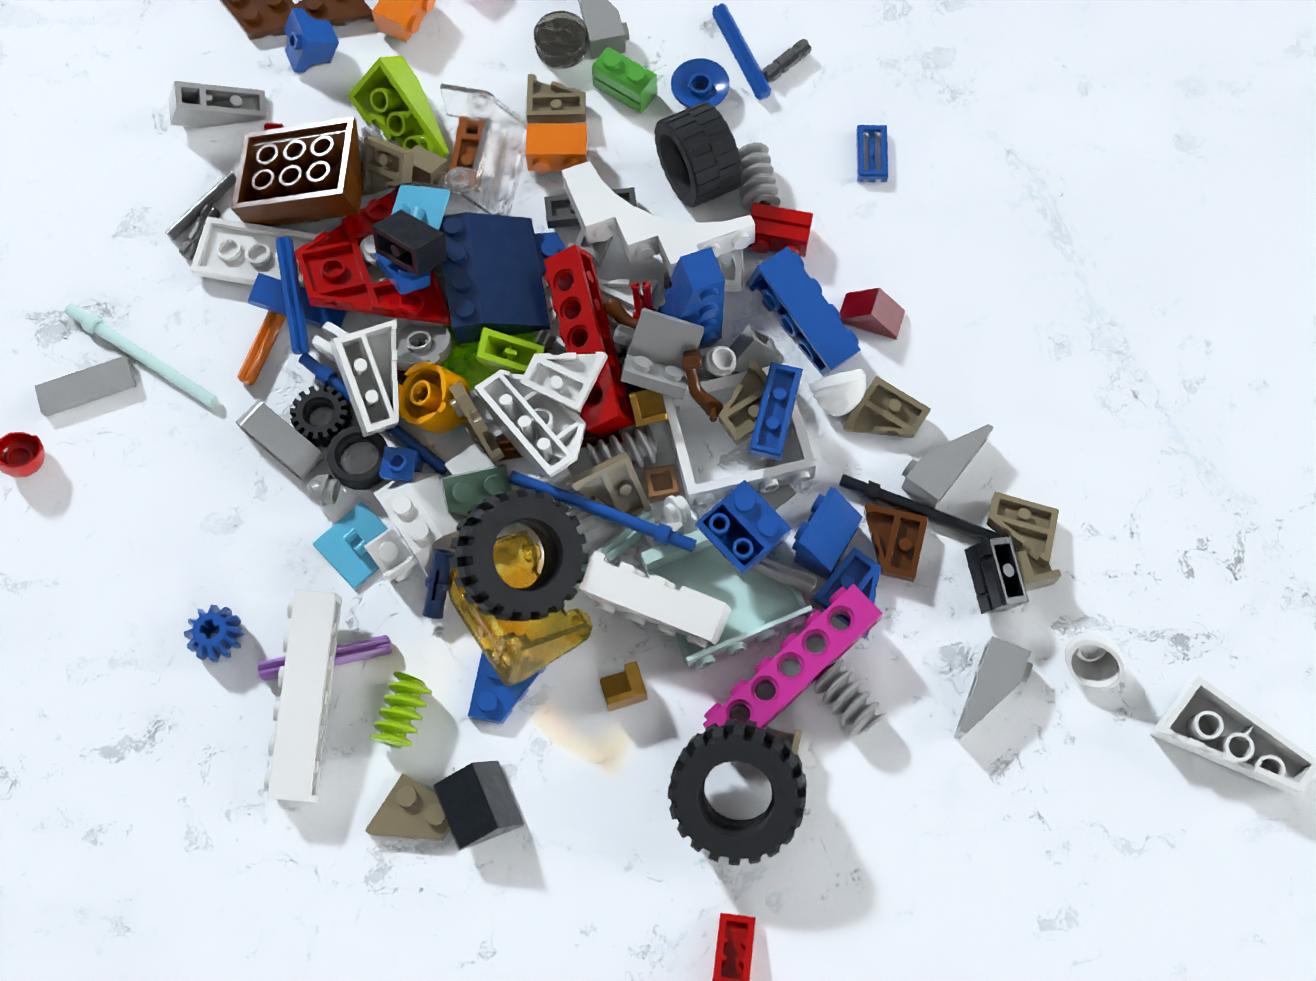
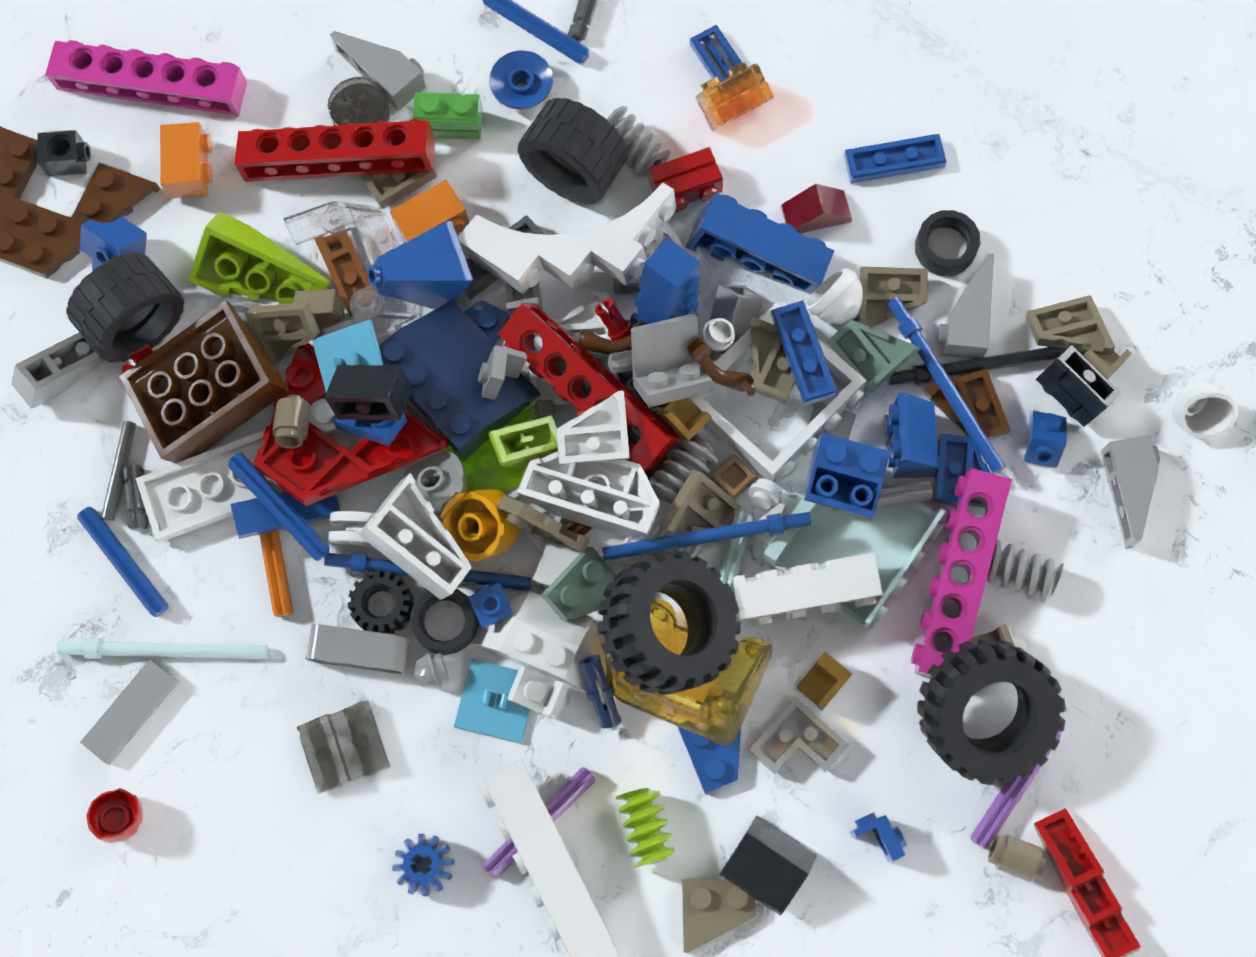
camera: 30 degrees left, 5 degrees up
(157, 273) = (122, 561): none -> blue axle
(219, 507) = (343, 747): none -> clear smoke slope
(281, 82) = (124, 306): none -> black tyre
(342, 235) = (291, 421): none -> dark tan brick
(519, 178) = (424, 269): none -> blue slope
(520, 59) = (335, 150): none -> red brick
(529, 281) = (501, 363): none -> light grey bracket
(572, 711) = (802, 730): none -> light grey plate
(590, 847) = (890, 839): none -> blue bracket
(685, 930) = (1016, 857): none -> dark tan brick
(716, 877) = (1002, 807): none -> medium lavender axle
(838, 448) = (871, 352): none -> sand green wing
(861, 185) = (733, 96): none -> clear orange brick
(883, 450) = (912, 330): none -> blue bar
(942, 604) = (1046, 439): none -> blue bracket
(966, 309) = (895, 158): none -> blue tile
(974, 379) = (958, 222): none -> black tyre

